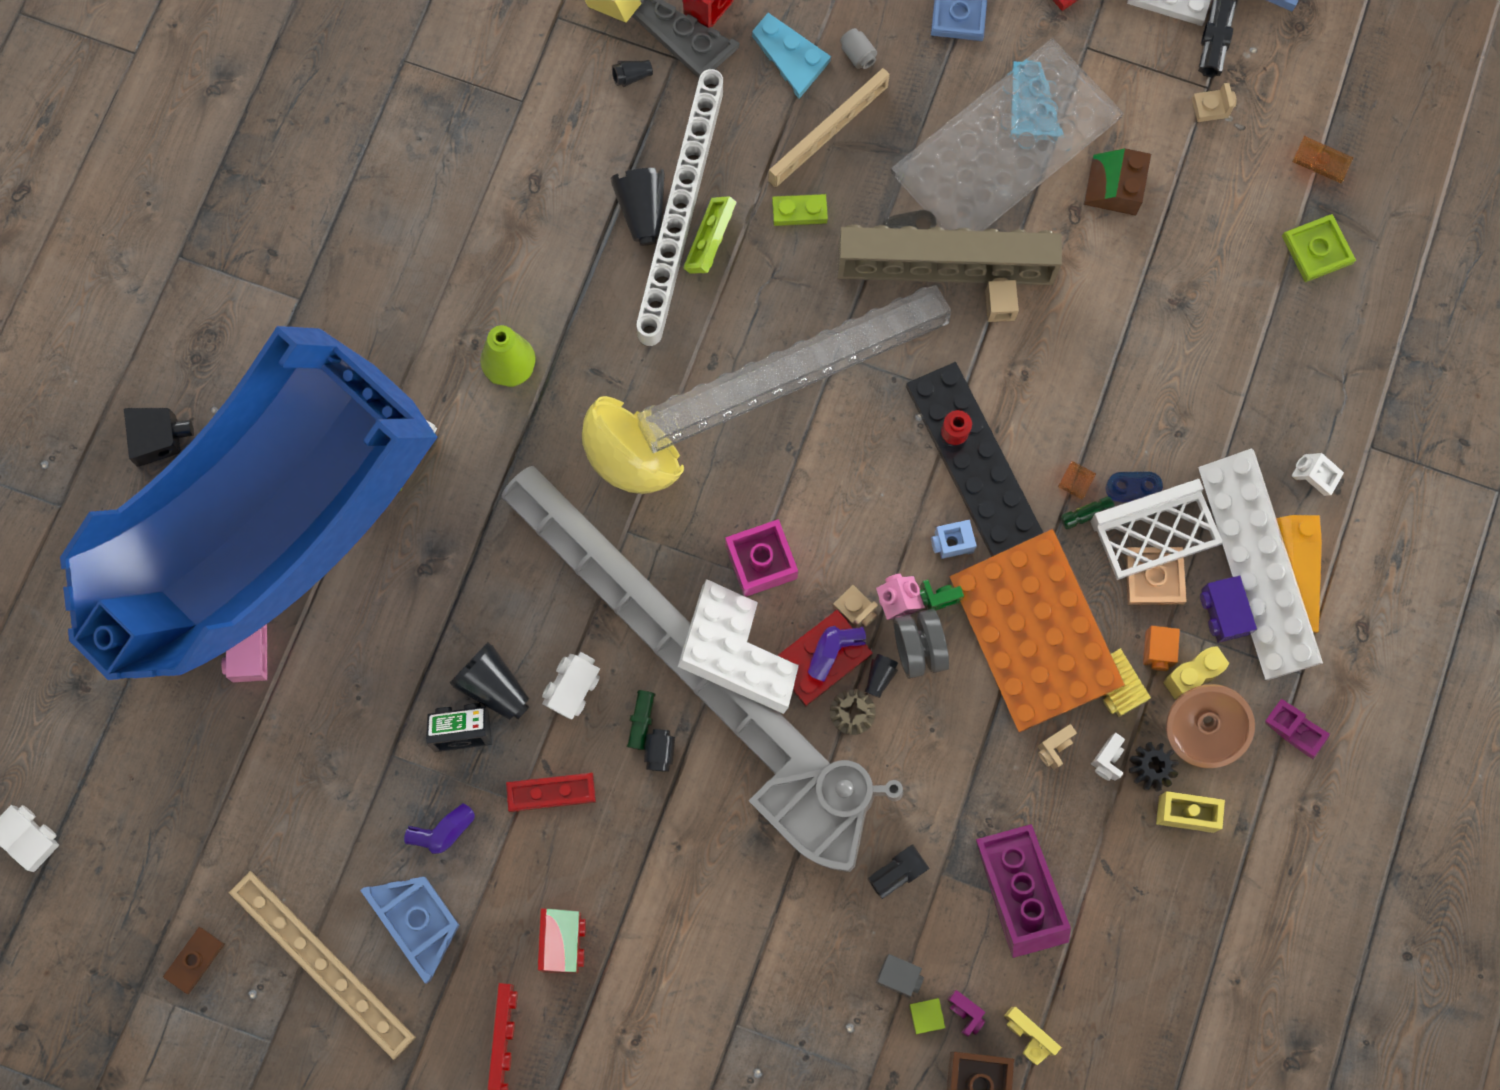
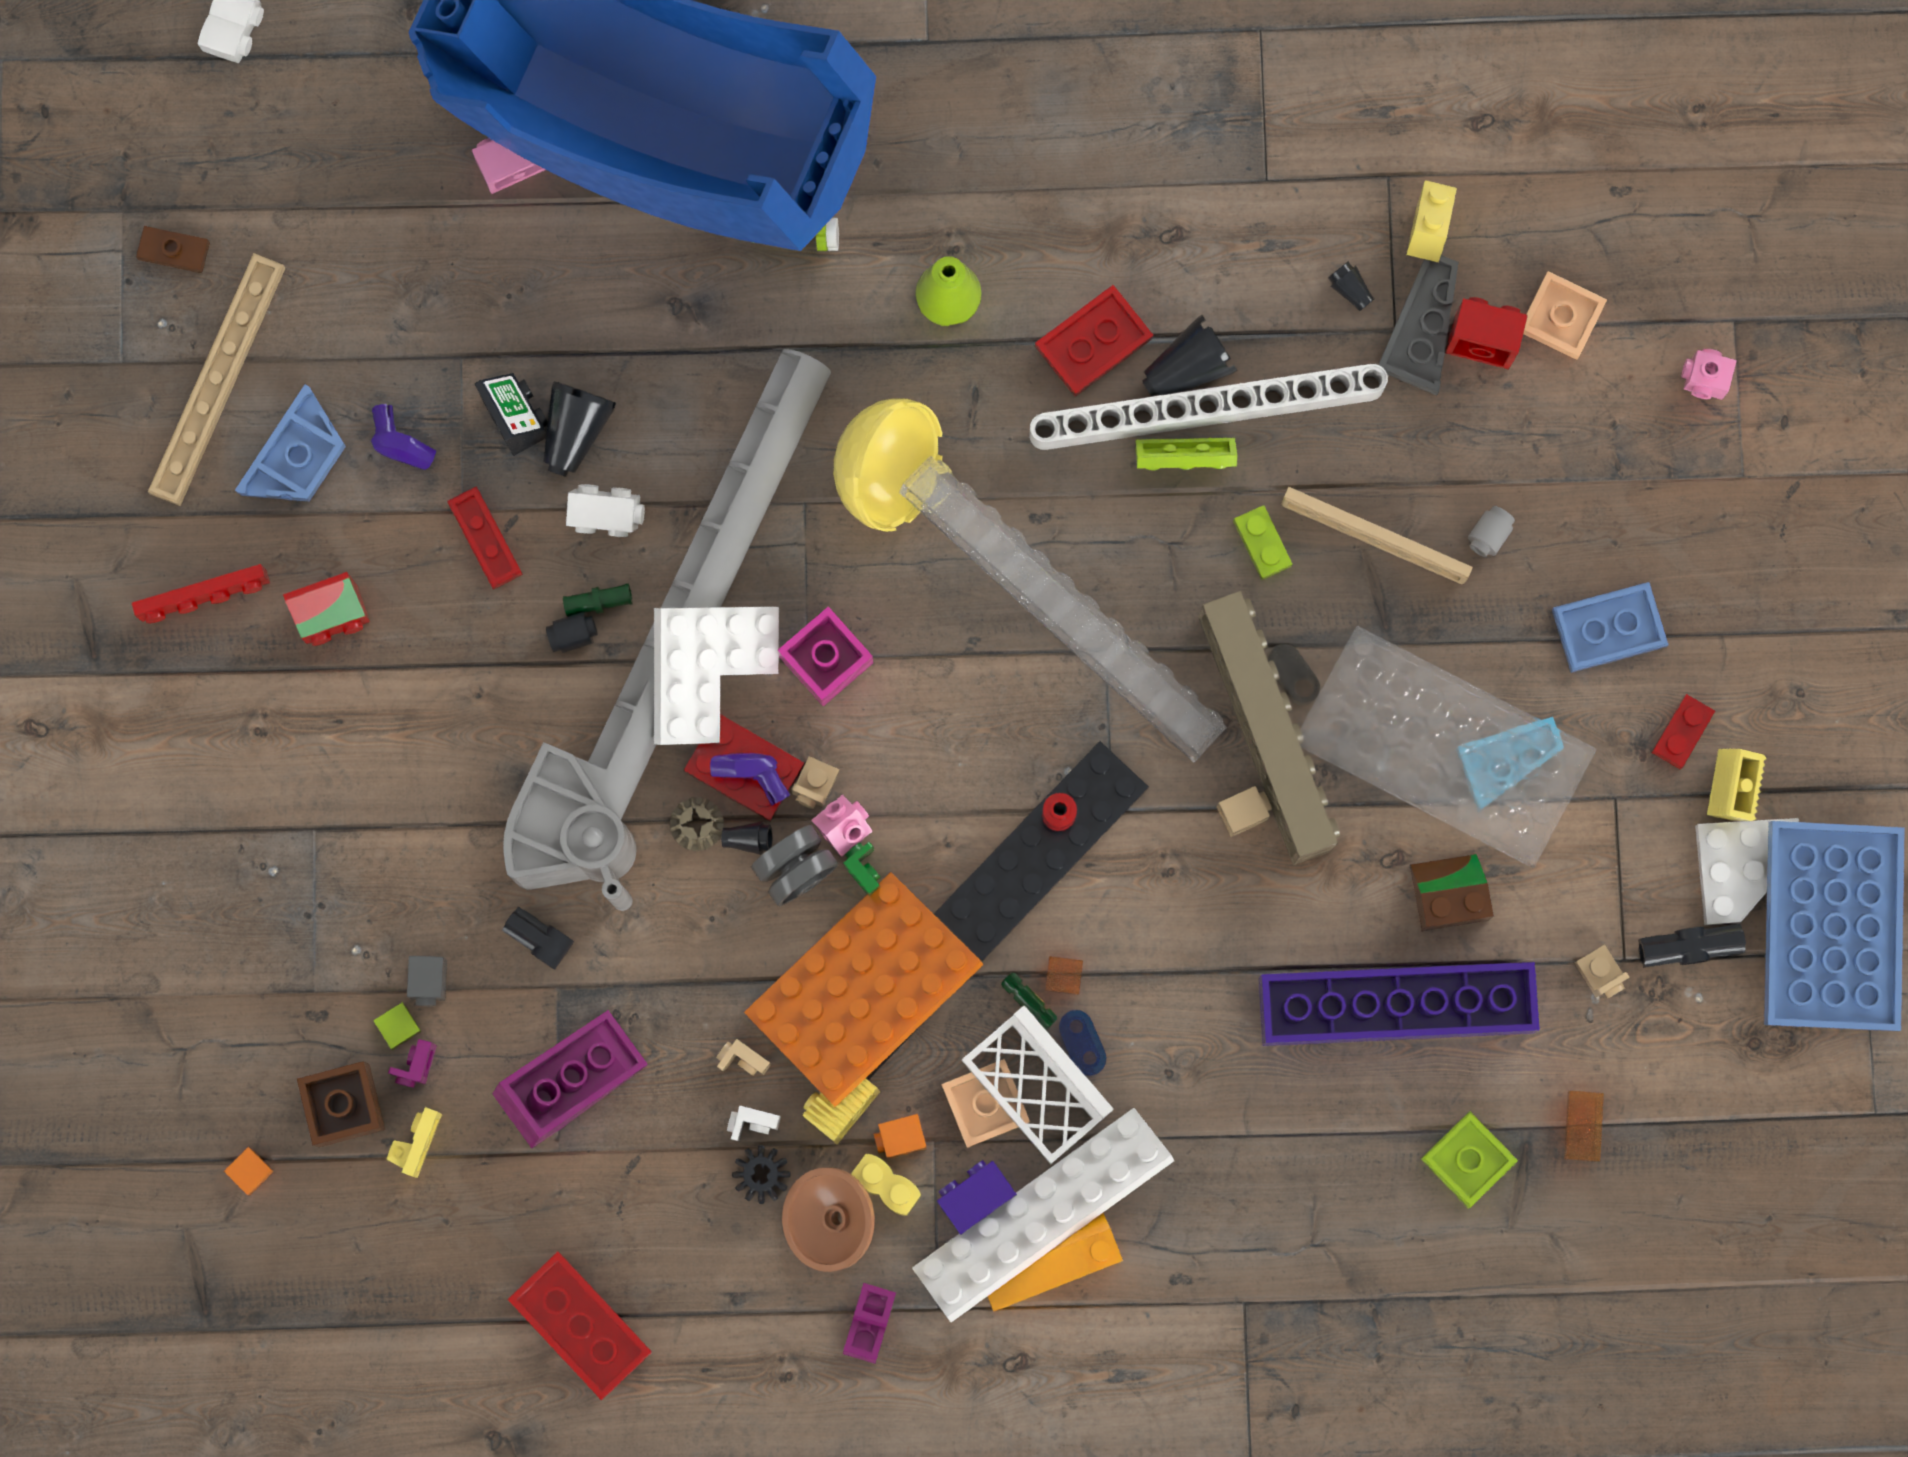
camera: 70 degrees right, 5 degrees up
(593, 267) = (1094, 340): none -> red plate
(793, 55) = (1455, 457): medium azure wing -> none
(958, 531) = (947, 864): light blue brick -> none
(1190, 248) = (1398, 1004): none -> dark purple brick
(1190, 812) = (723, 1230): light yellow brick -> none
(1225, 957) = (580, 1325): none -> red plate
(1318, 472) = (1182, 1248): white bracket -> none

